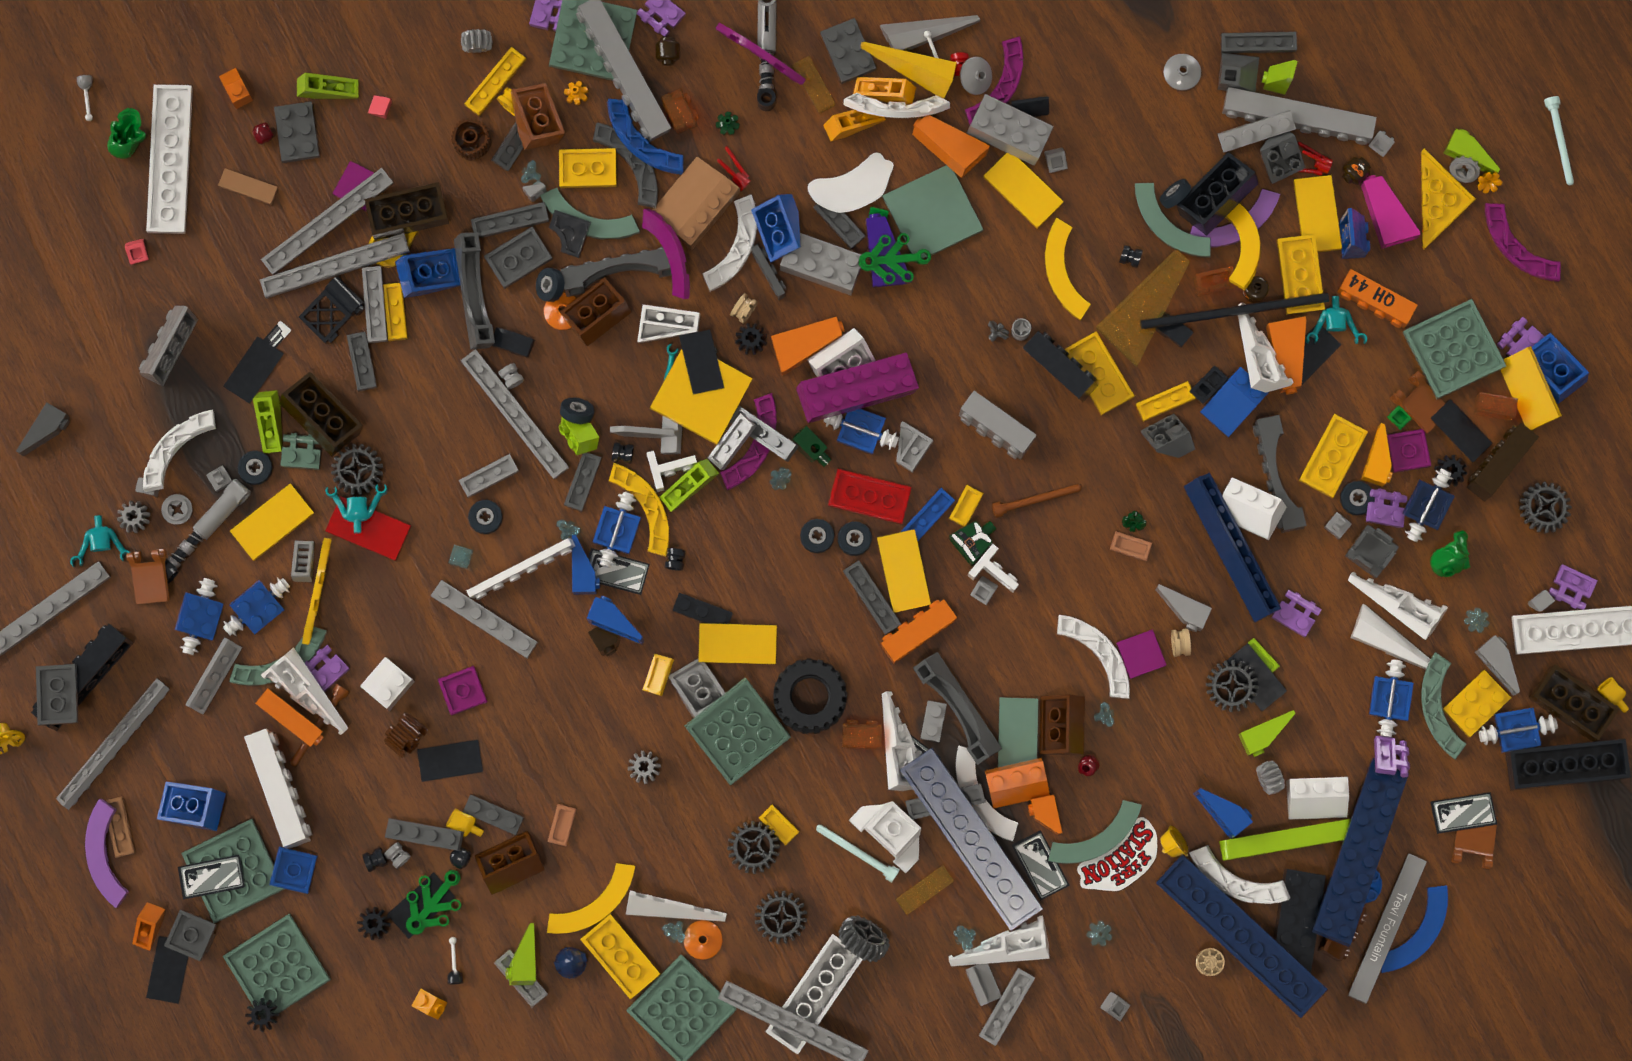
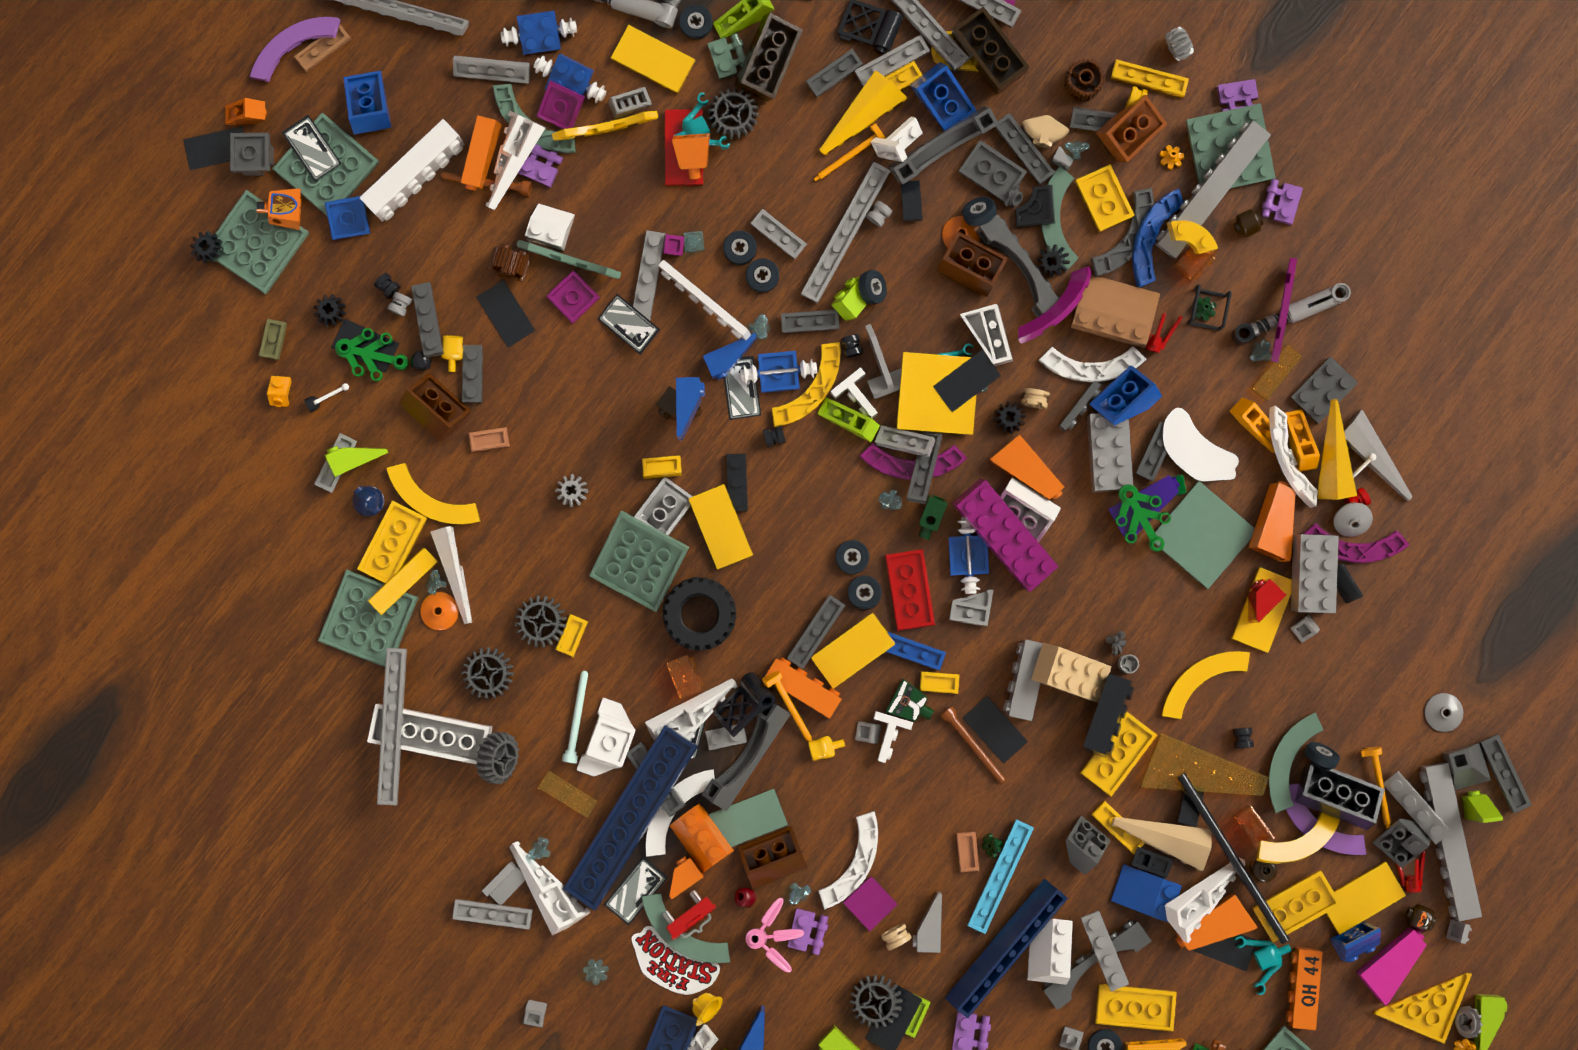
camera: 70 degrees right, 5 degrees up
(257, 926) = (283, 208): none -> orange torso
(278, 625) = (560, 106): none -> magenta tile
(377, 989) = (273, 339): none -> olive plate
(378, 520) = (692, 152): none -> orange torso
(405, 337) = (872, 102): none -> yellow wedge
(427, 678) = (568, 259): none -> sand green tile
(437, 346) = (877, 133): none -> light orange piece
(455, 335) = (894, 145): none -> white bracket
(455, 576) = (673, 245): none -> magenta plate
(501, 195) = (1044, 130): none -> tan piece
(511, 648) = (628, 324): none -> sticker
(528, 501) = (771, 279): none -> black bush
(551, 248) = (1014, 197): none -> dark grey plate
(618, 236) = (1053, 252): none -> black gear
(658, 103) = (1193, 234): none -> yellow brick
(660, 961) = (402, 581): none -> yellow tile
(709, 120) = (1198, 290): none -> black piece
(789, 90) = (1261, 351): none -> clear light blue plant
(899, 652) = (774, 678): none -> light orange piece
(901, 677) = (757, 696): none -> black piece
(981, 636) = (824, 748): none -> yellow piece
(1007, 381) = (1070, 672): none -> tan brick
(1013, 184) = (1263, 599): none -> red slope
(1030, 474) = (995, 729): none -> black sticker
(1086, 822) = (690, 918): none -> red piece
(1136, 748) = (779, 935): none -> bright pink plant
(1138, 726) = (805, 921): none -> medium lavender plate
(1165, 525) = (1000, 876): none -> medium azure plate
(1191, 147) = (1374, 752): none -> light orange piece
(1202, 349) = (1186, 843): none -> tan wedge
(1270, 460) = (1104, 950): none -> light grey plate

